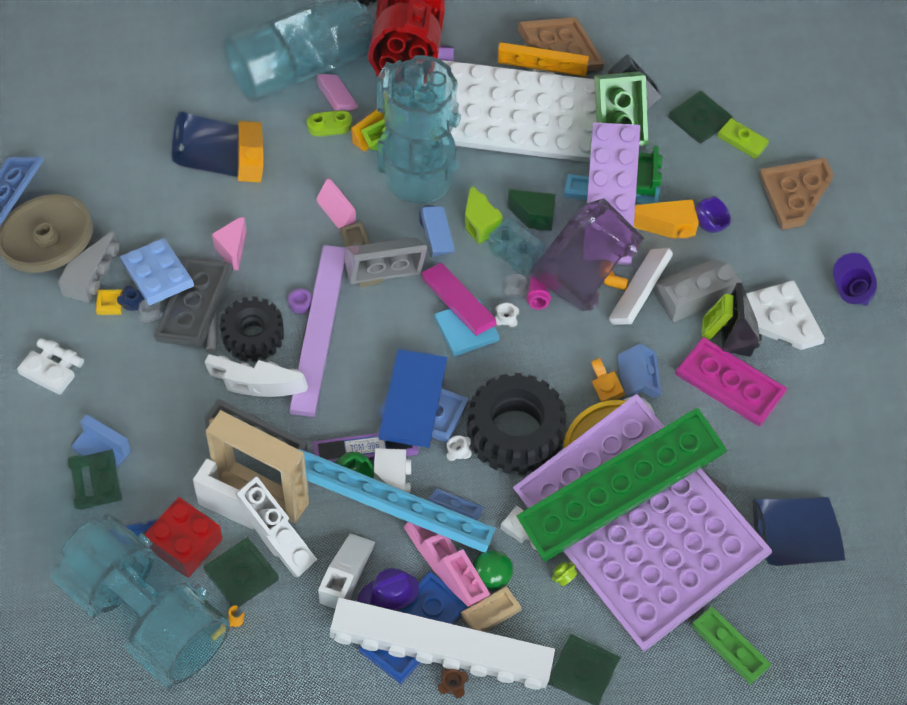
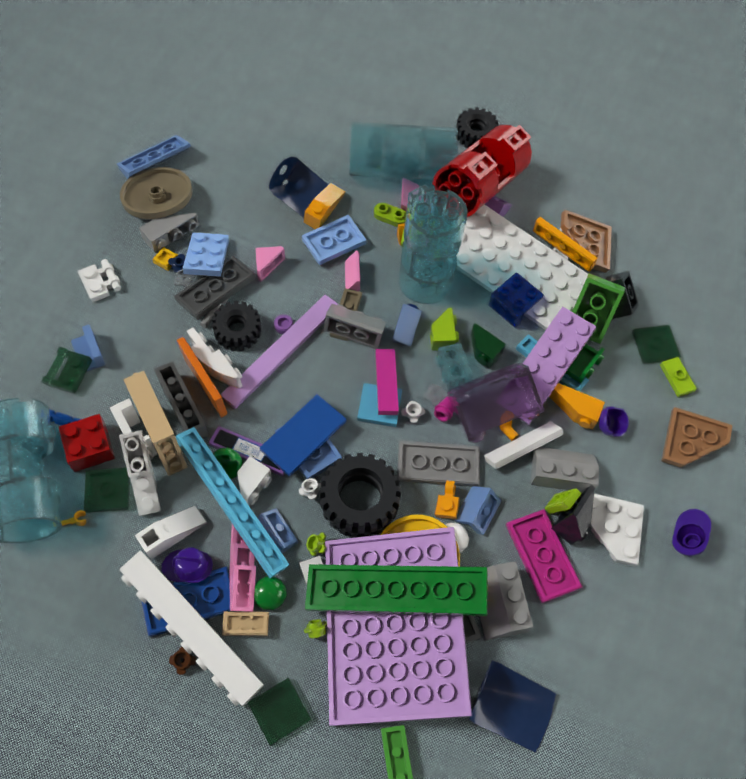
camera: 30 degrees right, 5 degrees up
(260, 399) = (202, 377): none -> orange tile
(288, 182) = (333, 239): none -> light blue plate
(499, 496) = (316, 544): none -> lime plate
(531, 144) = (514, 299): none -> clear blue bracket
(569, 351) = (438, 462): none -> light grey tile
(744, 447) = (506, 603): none -> light grey slope

